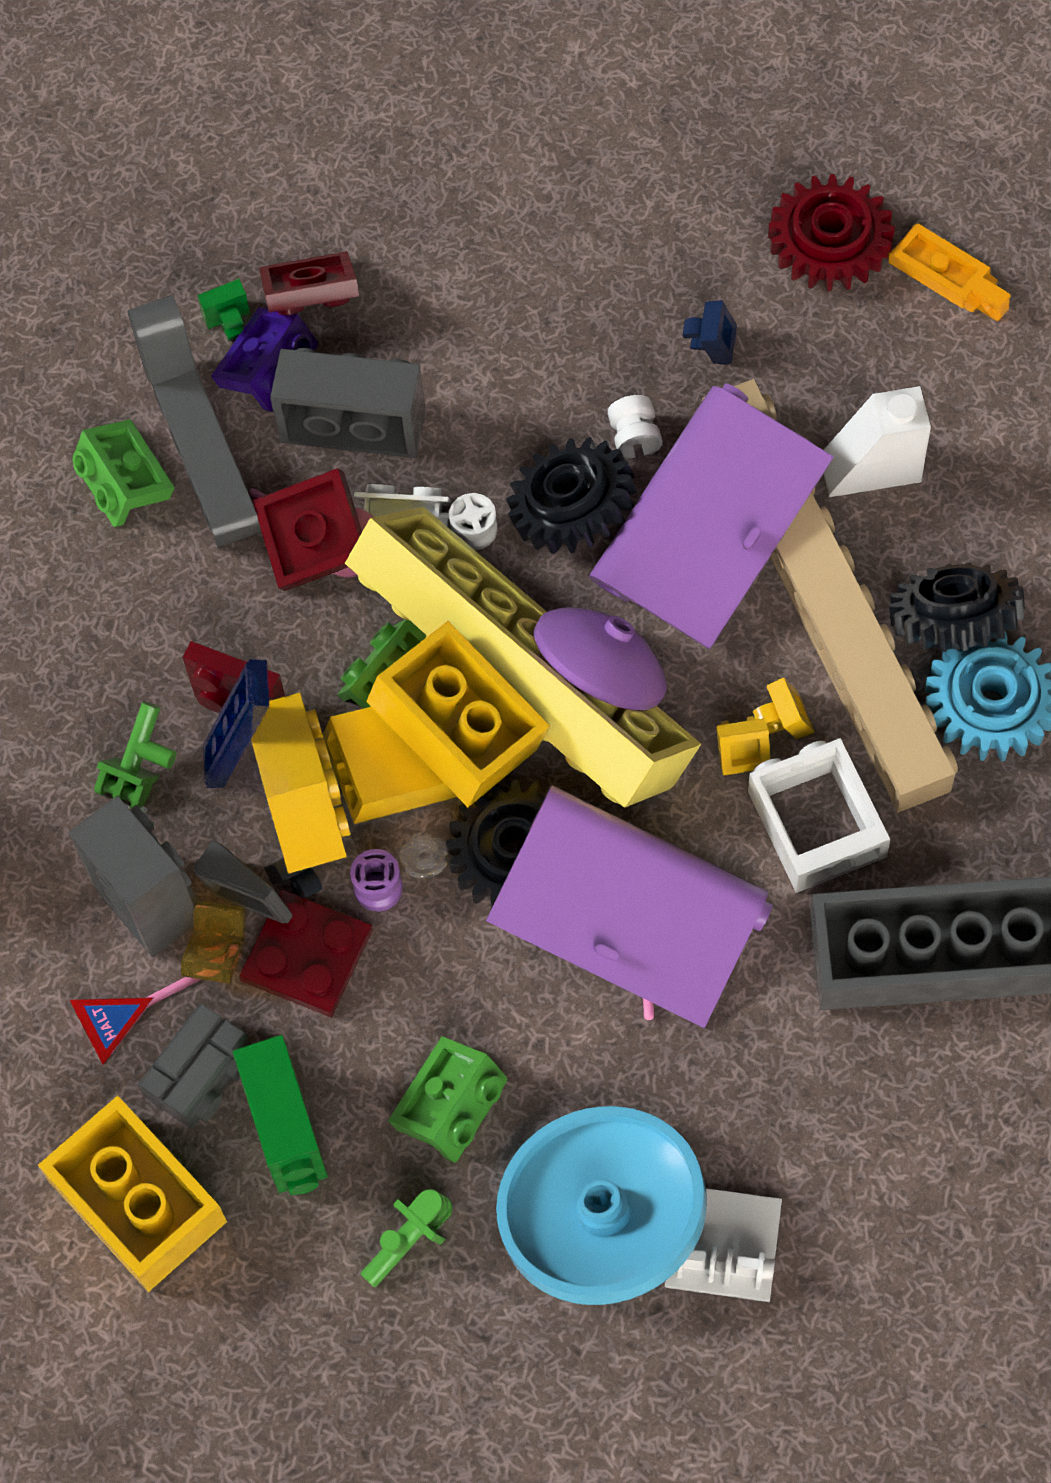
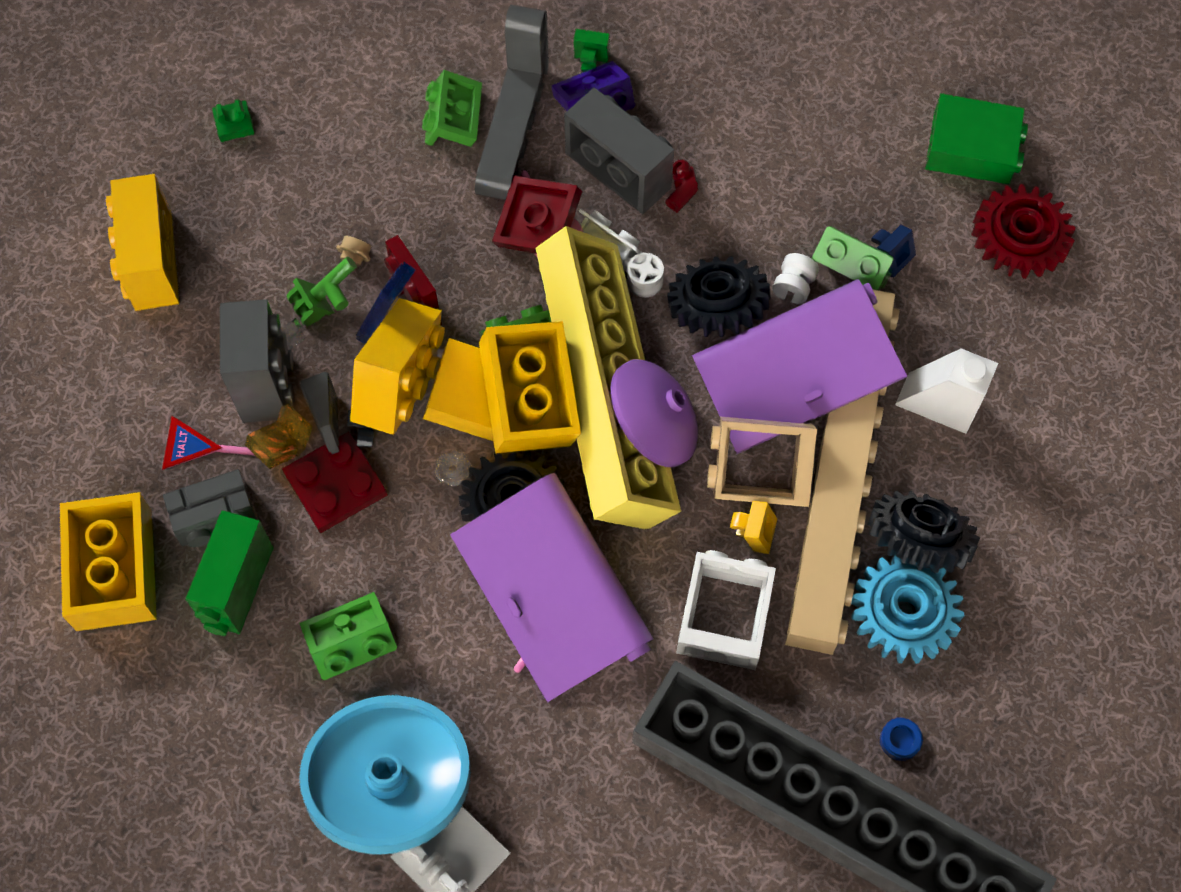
camera: 30 degrees right, 0 degrees up
(131, 692) = (355, 249): none -> tan plate
(309, 282) = (652, 61): dark red plate -> none
(376, 891) = (411, 472): medium lavender wheel -> none
(424, 1217) = (269, 703): bright green arm -> none
(442, 399) = (685, 184): none -> dark red arm
(683, 367) = (853, 258): none -> bright green bracket
(712, 161) = (976, 139): none -> green brick
(742, 745) = (710, 530): yellow tile -> none
(789, 618) = (802, 467): none -> tan window
(949, 272) = (1087, 306): light orange hinge -> none

